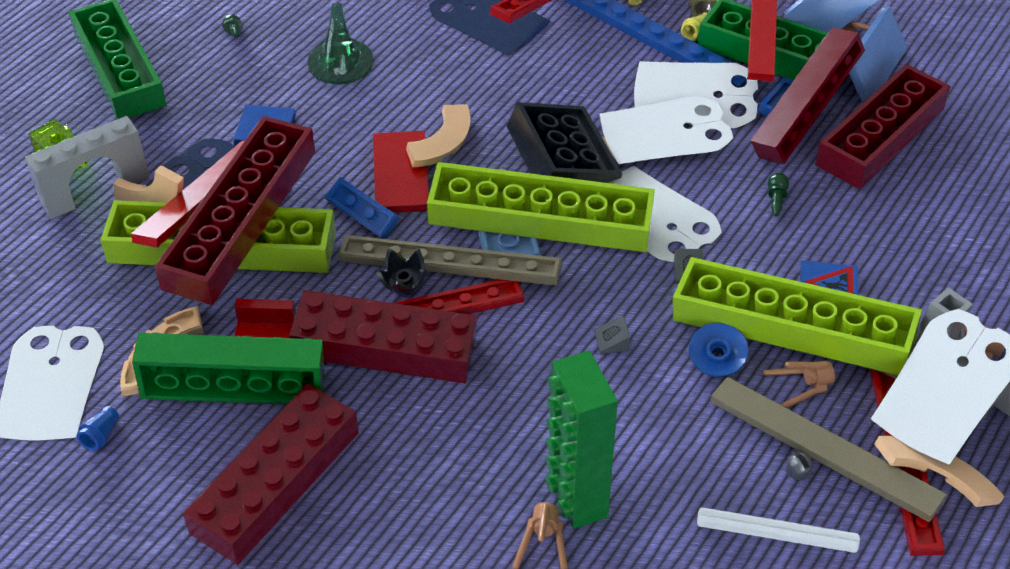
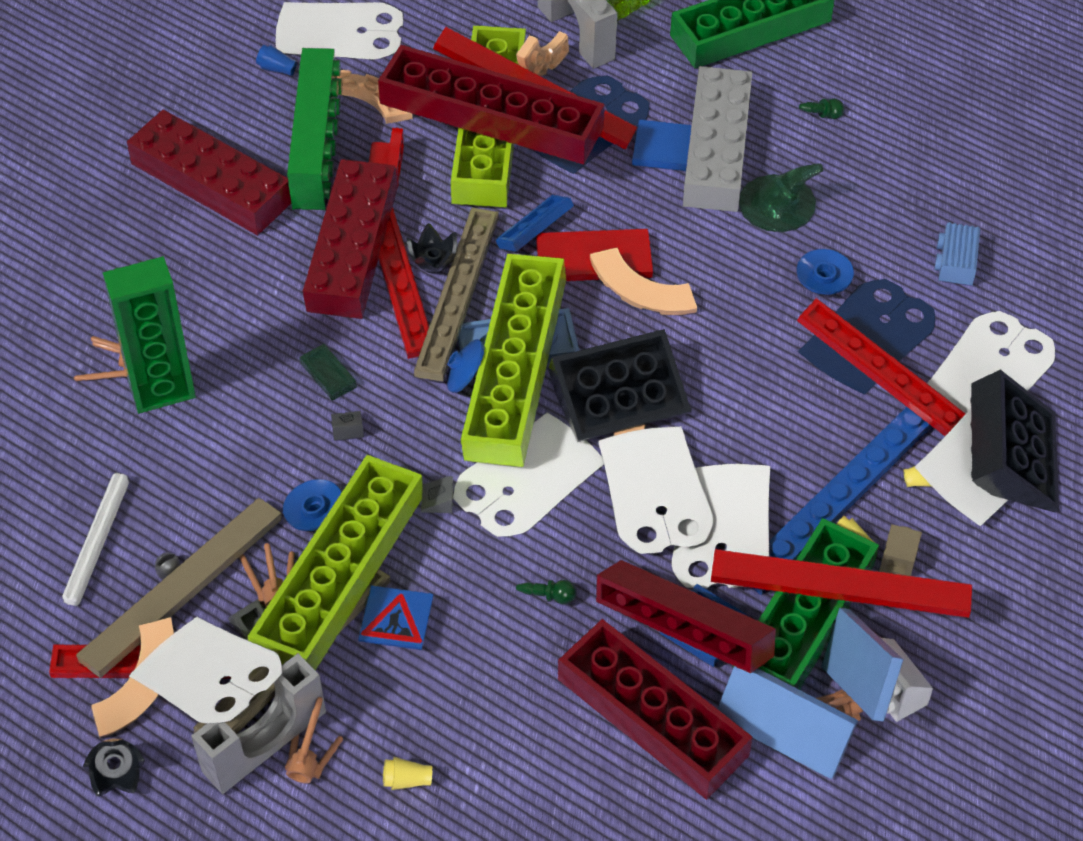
camera: 90 degrees right, 5 degrees up
(234, 81) = (717, 139): none -> light grey brick
(429, 28) = (825, 271): none -> blue dish
(538, 361) = (328, 372): none -> clear green tile
(552, 229) = (464, 365): none -> blue dish
(845, 396) = (246, 618): none -> dark grey slope
(978, 276) = (405, 774): none -> light yellow cone

